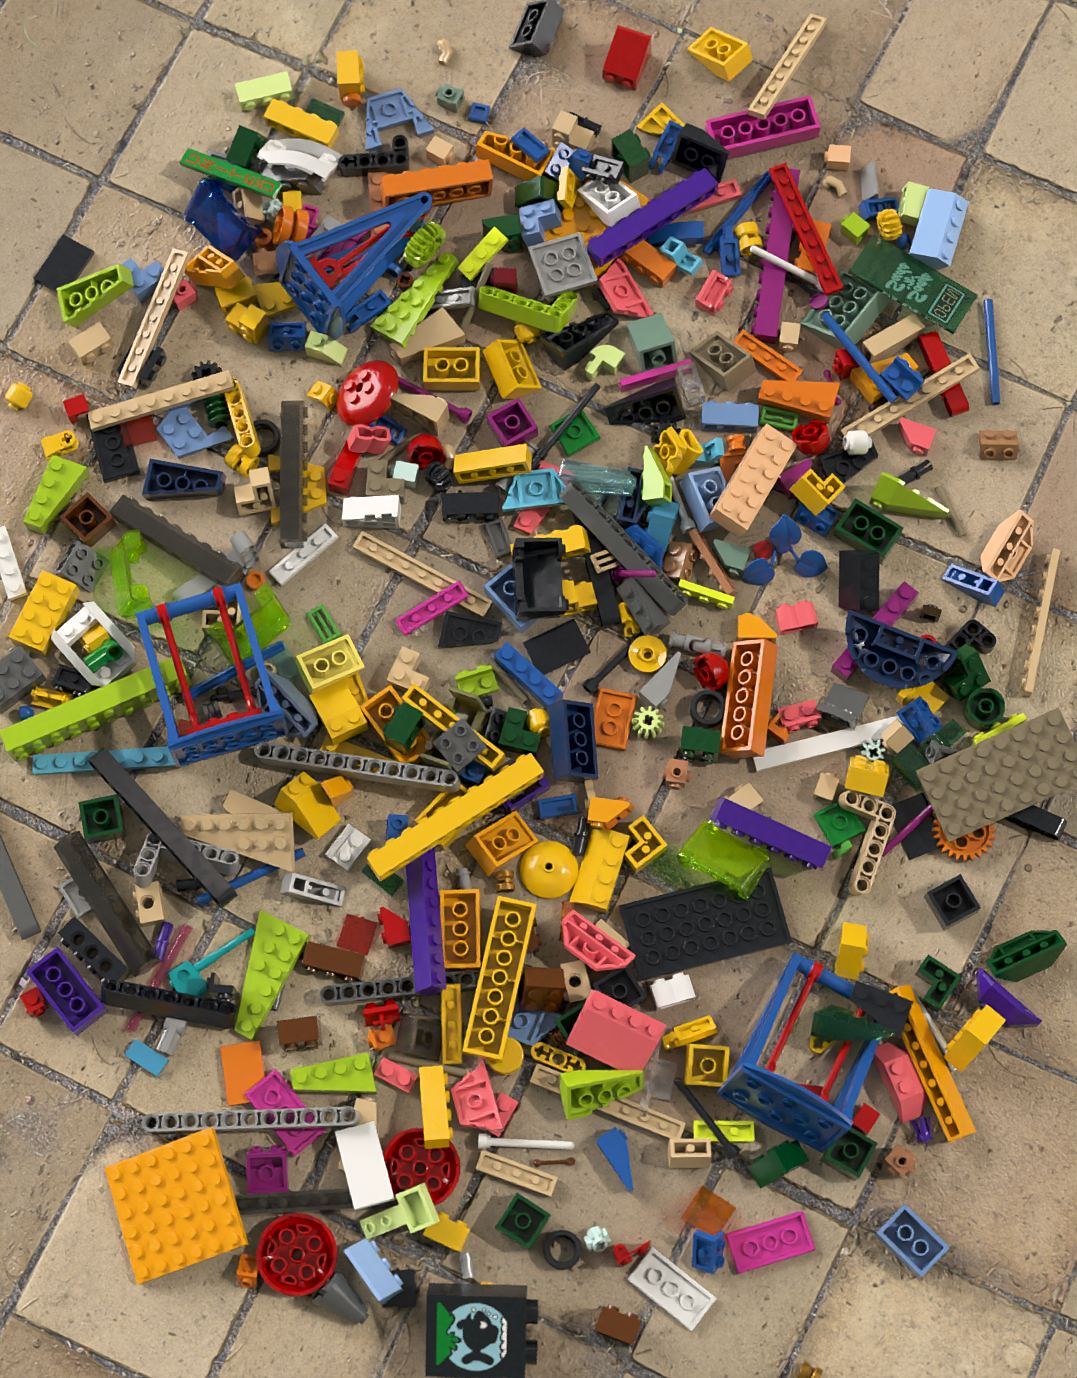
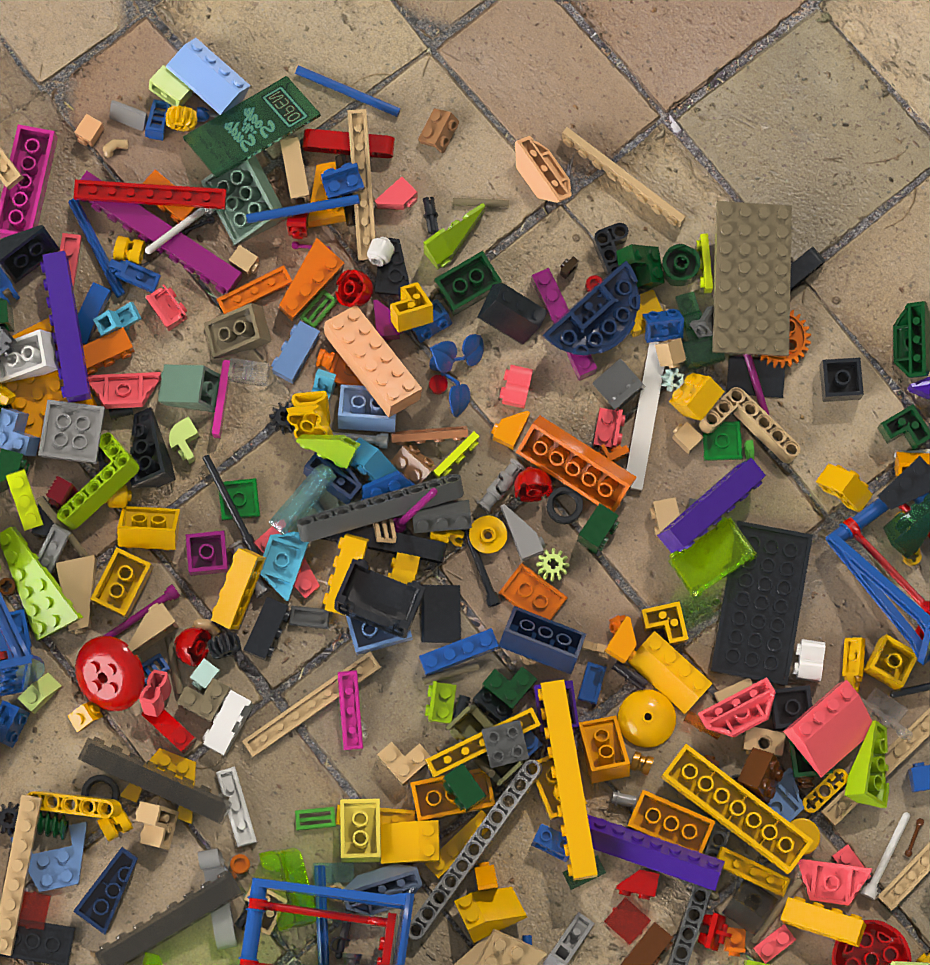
camera: 70 degrees left, 5 degrees up
(348, 847) = (542, 892): white plate -> none
(467, 630) = (385, 688): black wing -> none
(538, 722) = (506, 662): yellow head -> none
(649, 405) = (248, 414): black wedge -> none
(676, 774) = (614, 555): nougat brick -> none
(731, 557) = (432, 415): sand green slope -> none
(818, 301) = (222, 218): magenta piece -> none
(854, 228) = (166, 151): lime brick -> none
(974, 584) = (560, 217): blue slope -> none

